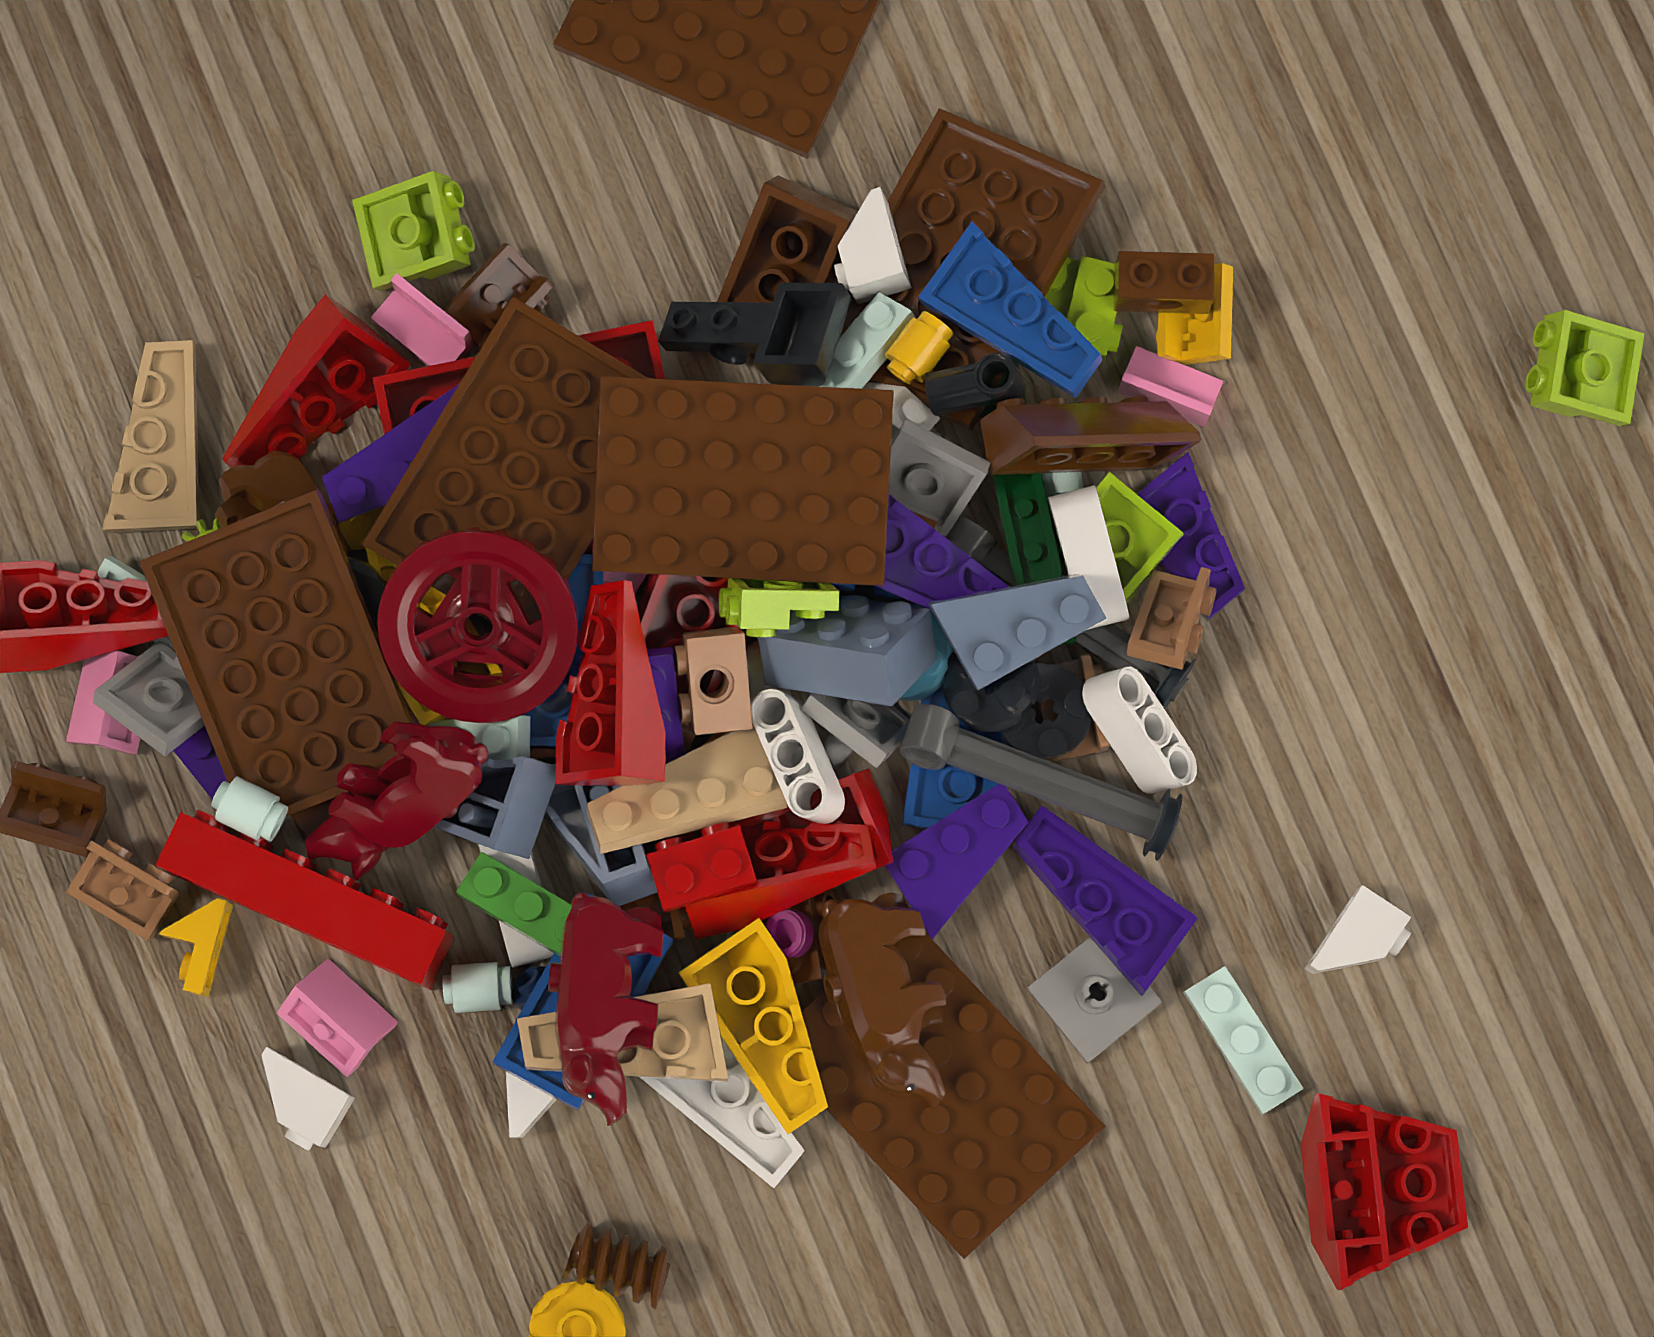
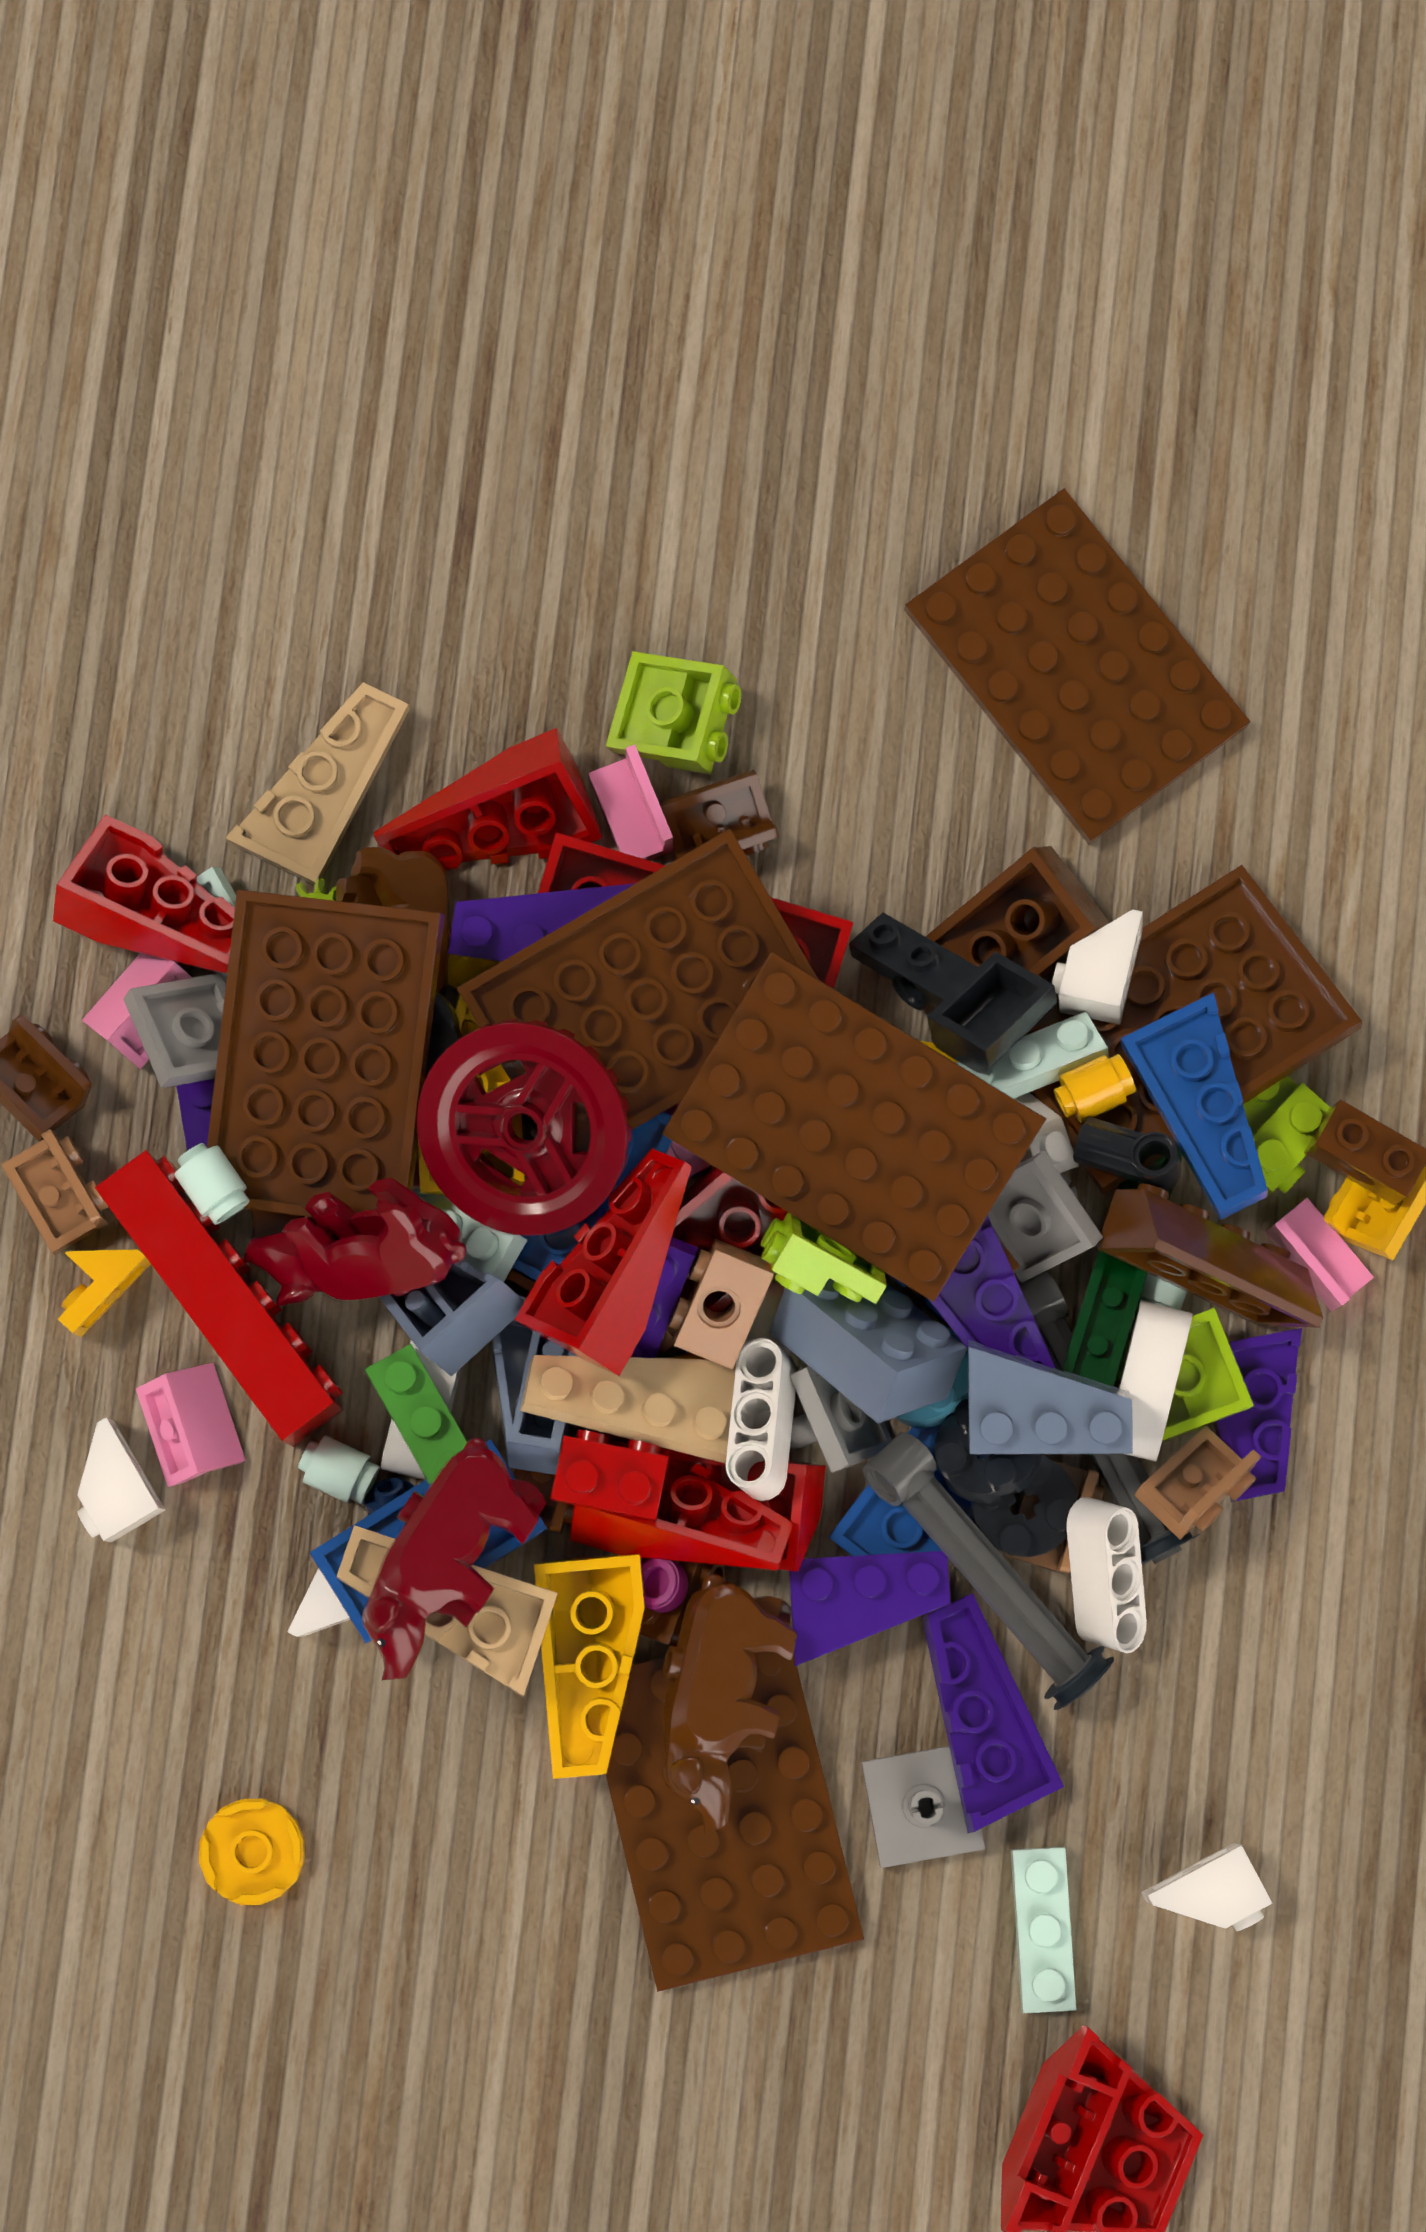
camera: 25 degrees right, 0 degrees up
(618, 1264) = (324, 1812): reddish brown piece -> none
(735, 1118) = (513, 1736): white wing -> none

